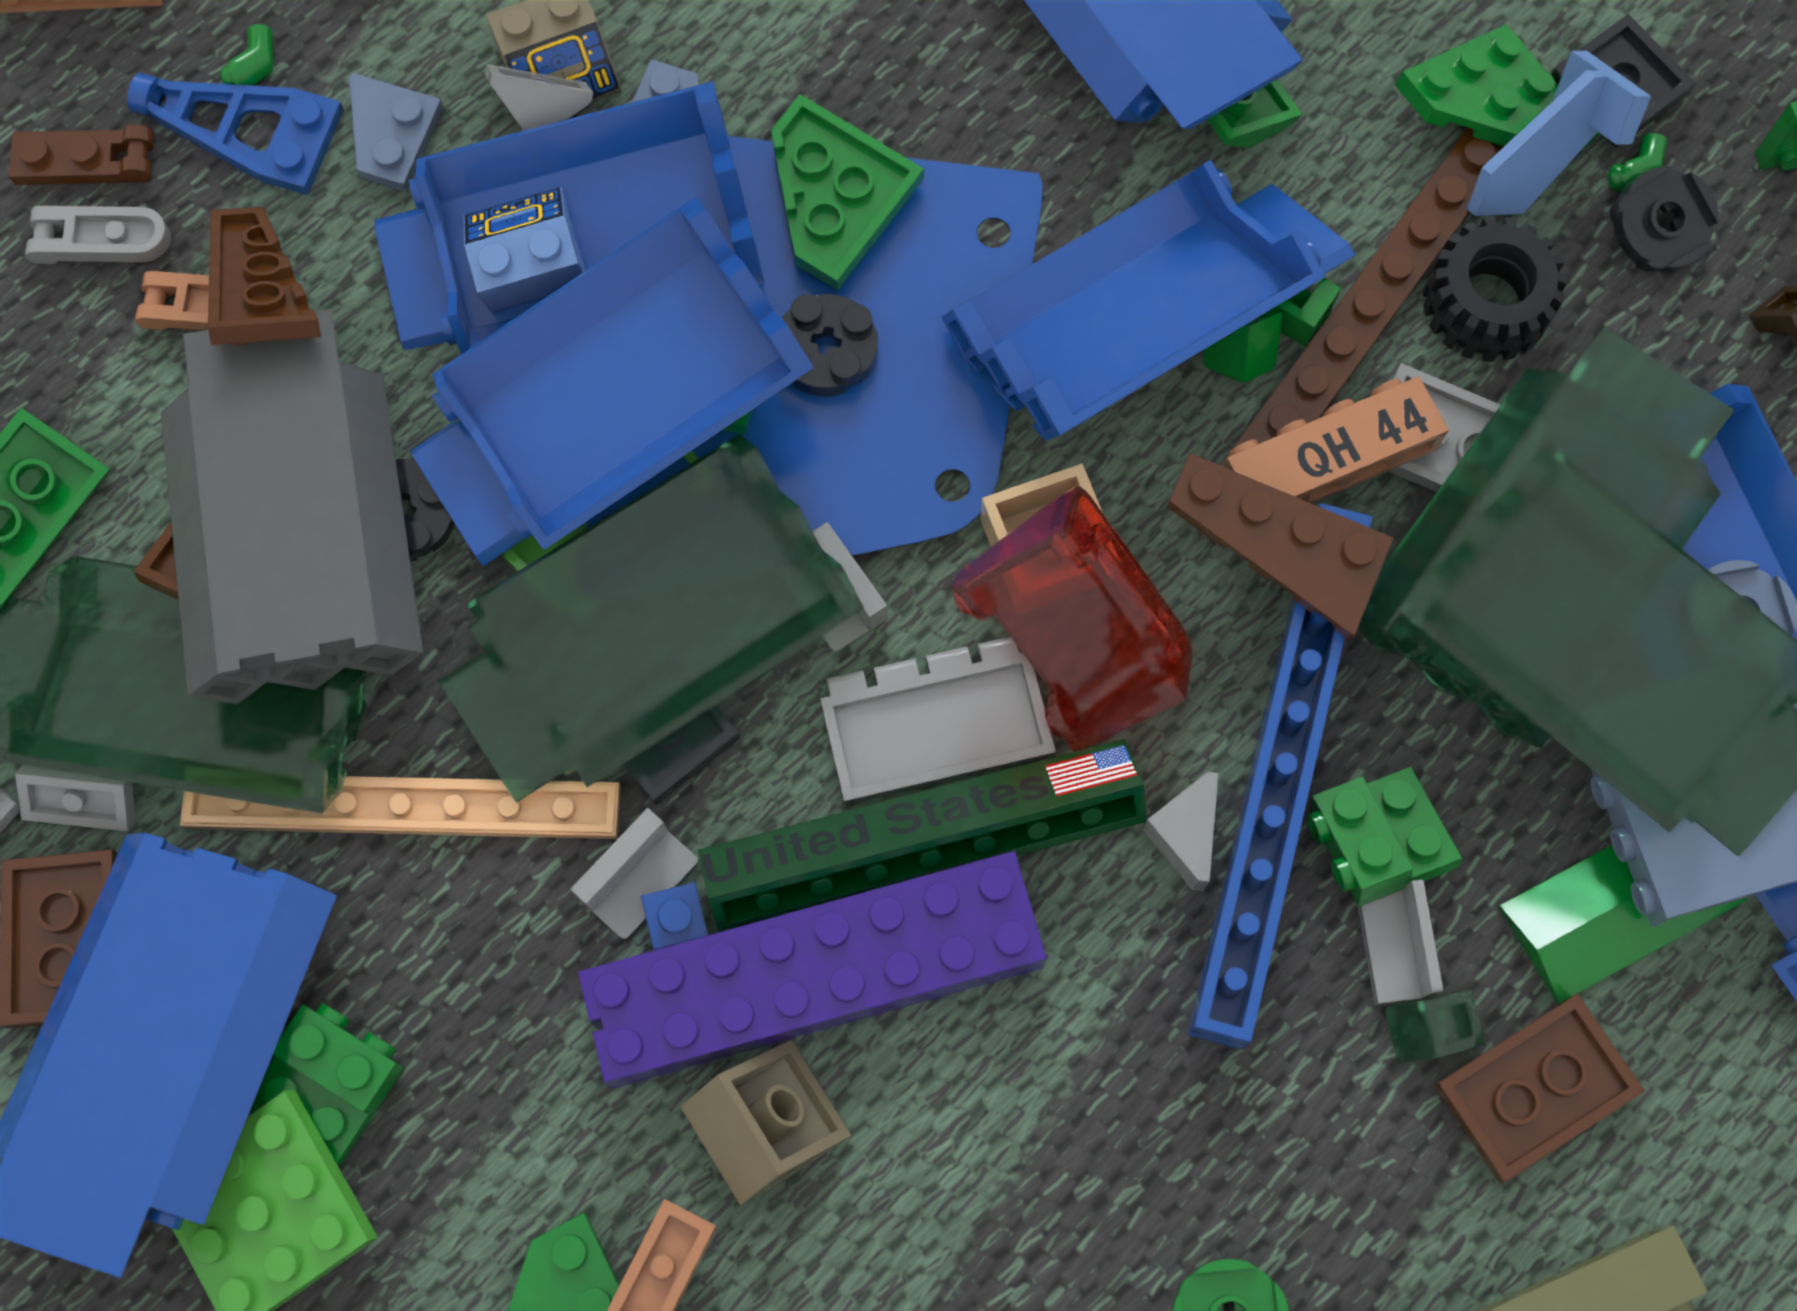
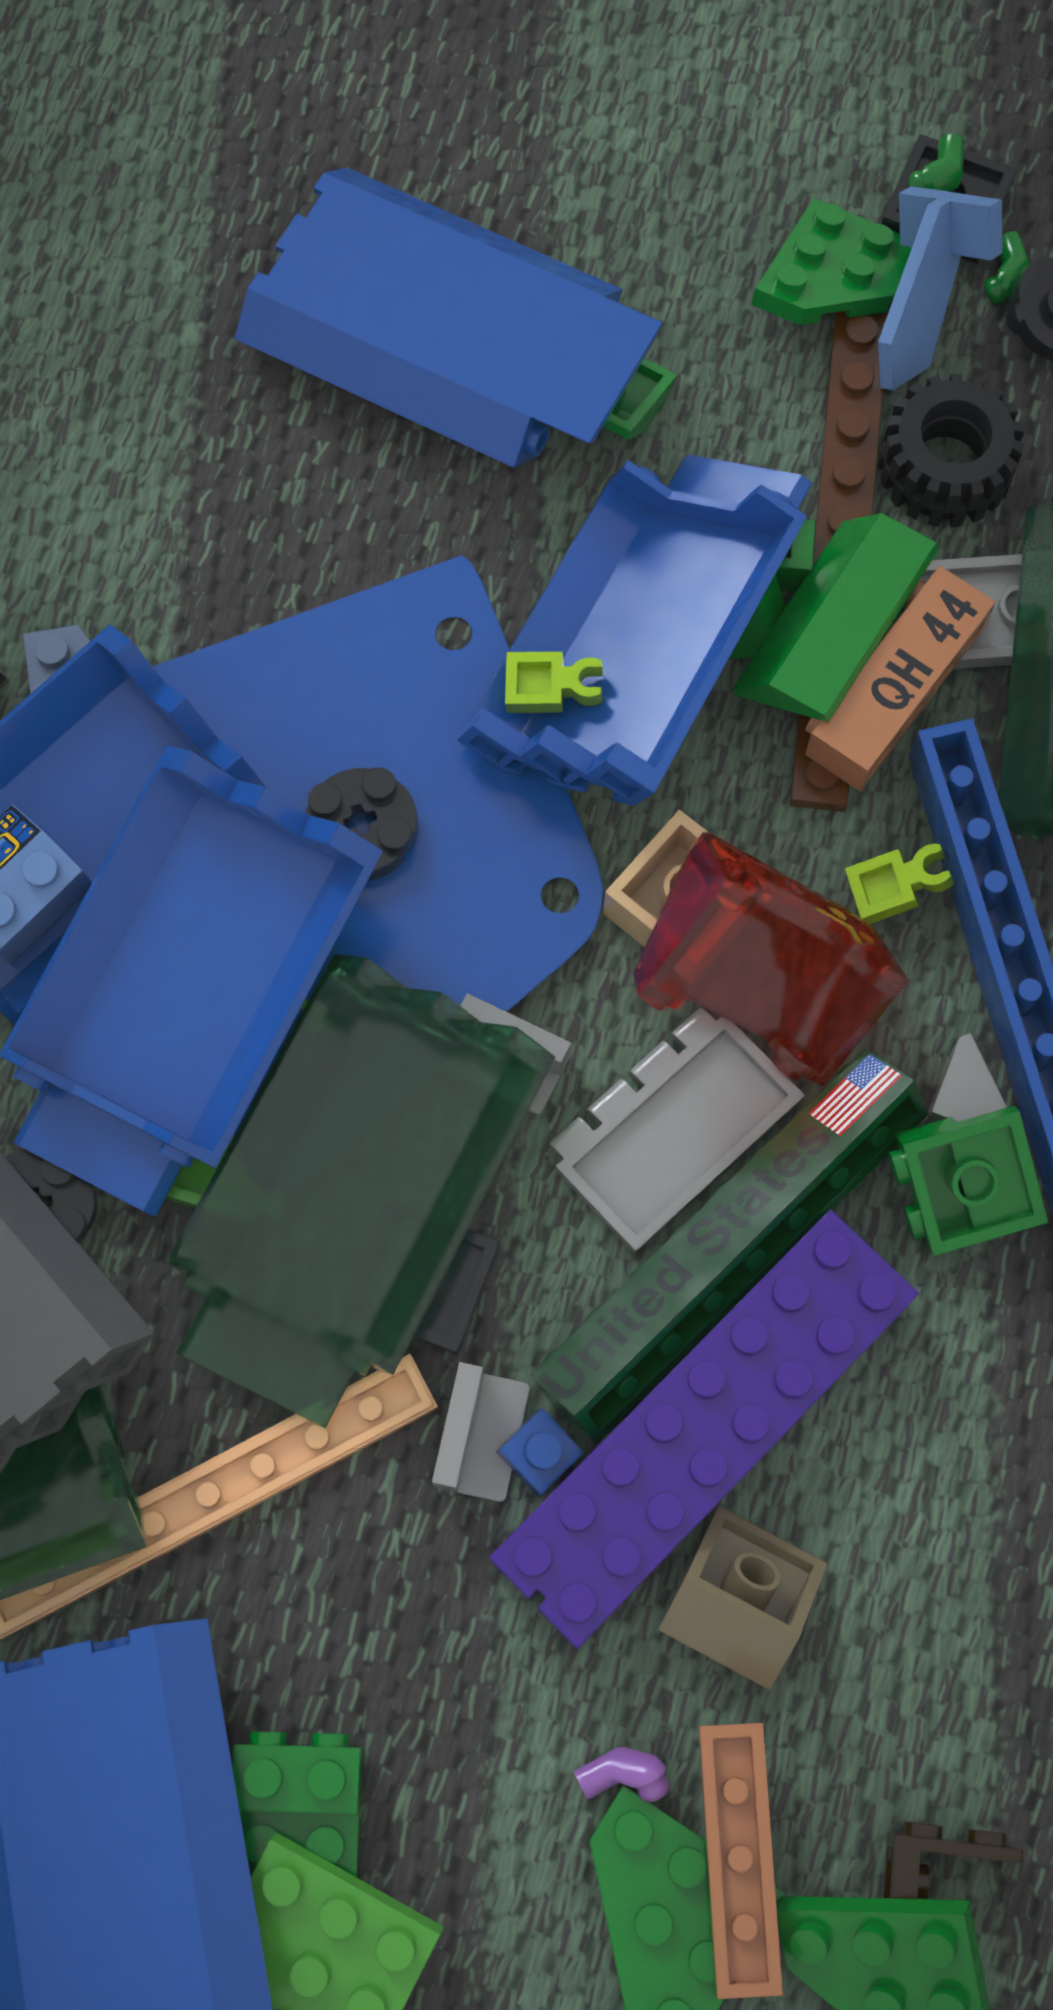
camera: 30 degrees left, 0 degrees up
(593, 1200) = (628, 1768): none -> medium lavender arm
(836, 188) = (280, 668): green plate -> none
(1036, 303) = (540, 682): none -> lime plate
(1143, 891) = (968, 1180): none -> green plate
(1228, 616) = (888, 884): none -> lime plate
(1298, 545) = (926, 780): reddish brown wing -> none
(1309, 376) = (837, 617): none -> green slope
(1630, 55) = (947, 170): none -> green arm

